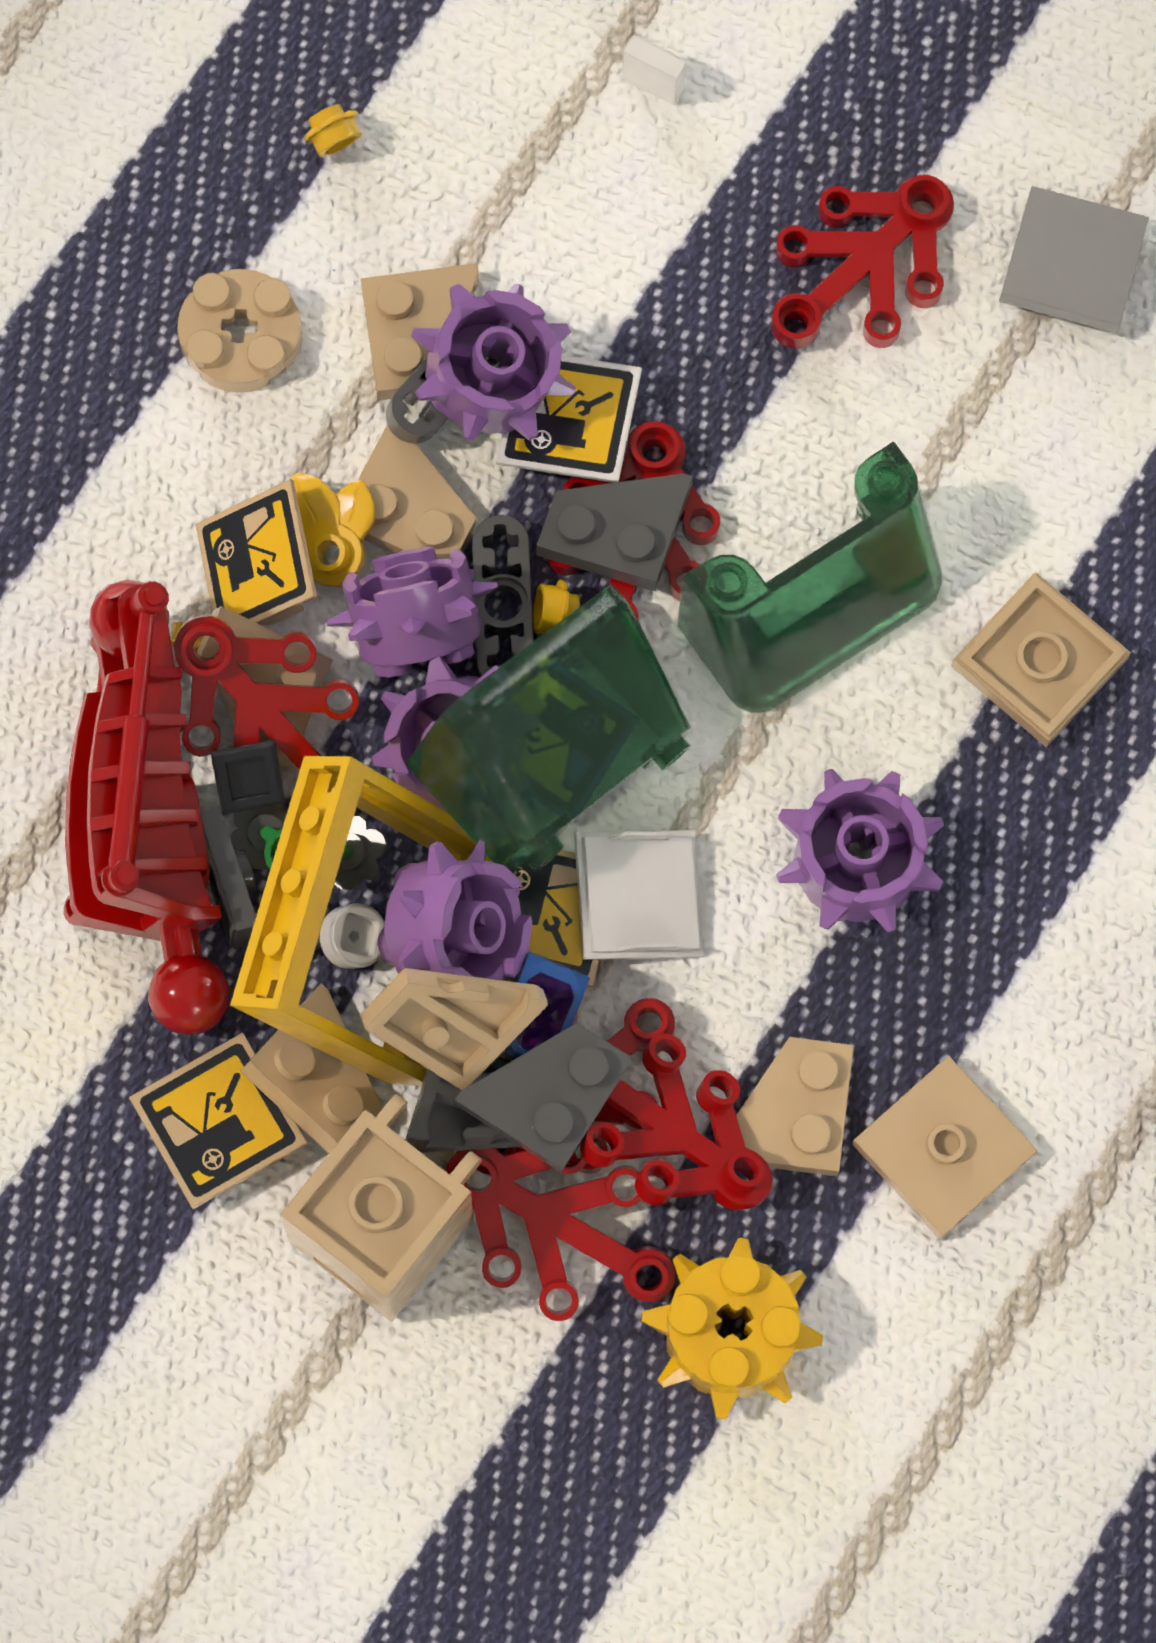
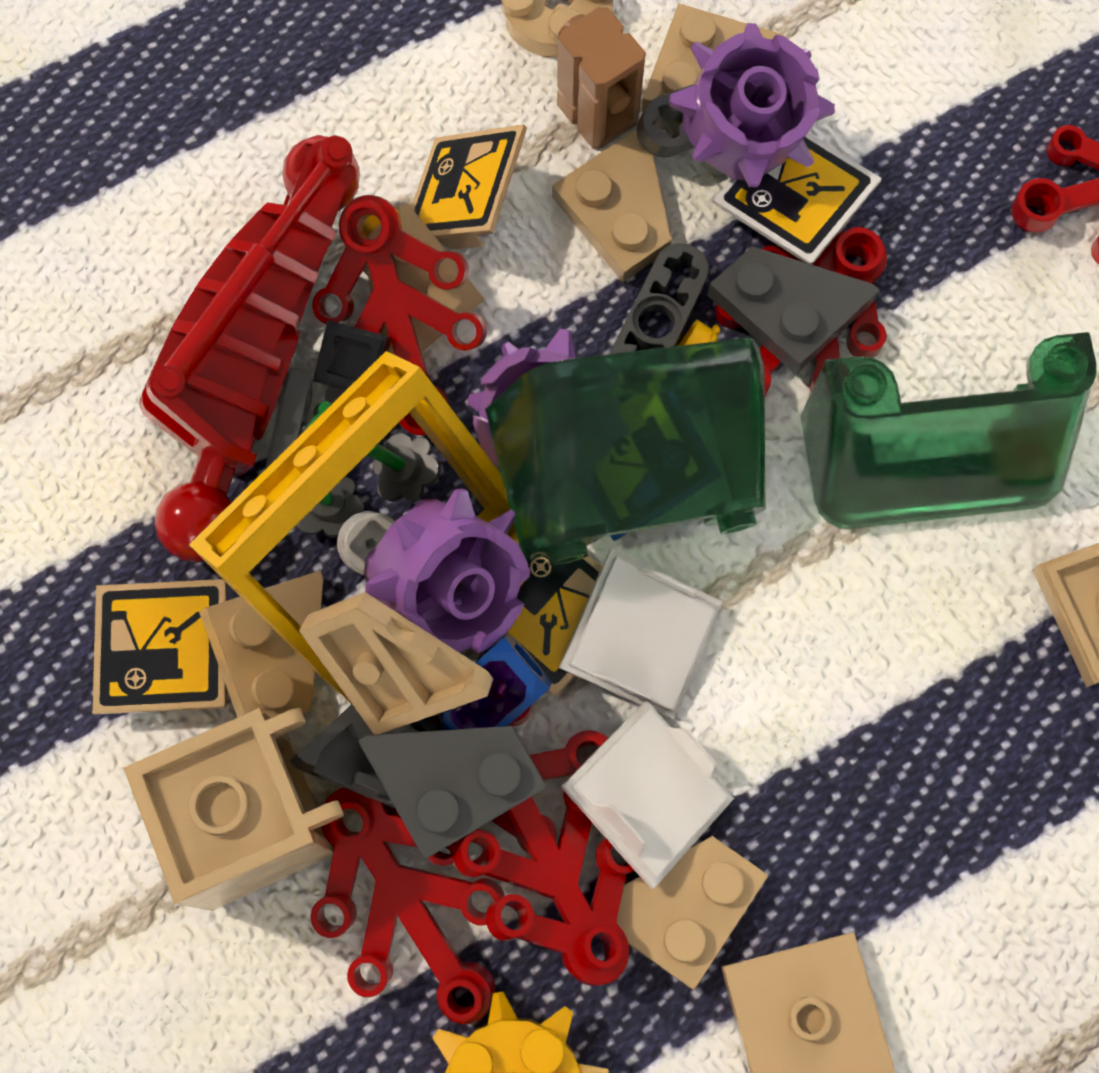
camera: 30 degrees right, 0 degrees up
(331, 396) = (599, 76): none -> medium nougat brick
(334, 520) = (543, 184): yellow plate -> none
(413, 610) = (570, 285): medium lavender brick -> none
(717, 1025) = (649, 792): none -> white piece
(875, 818) = (893, 672): medium lavender brick -> none

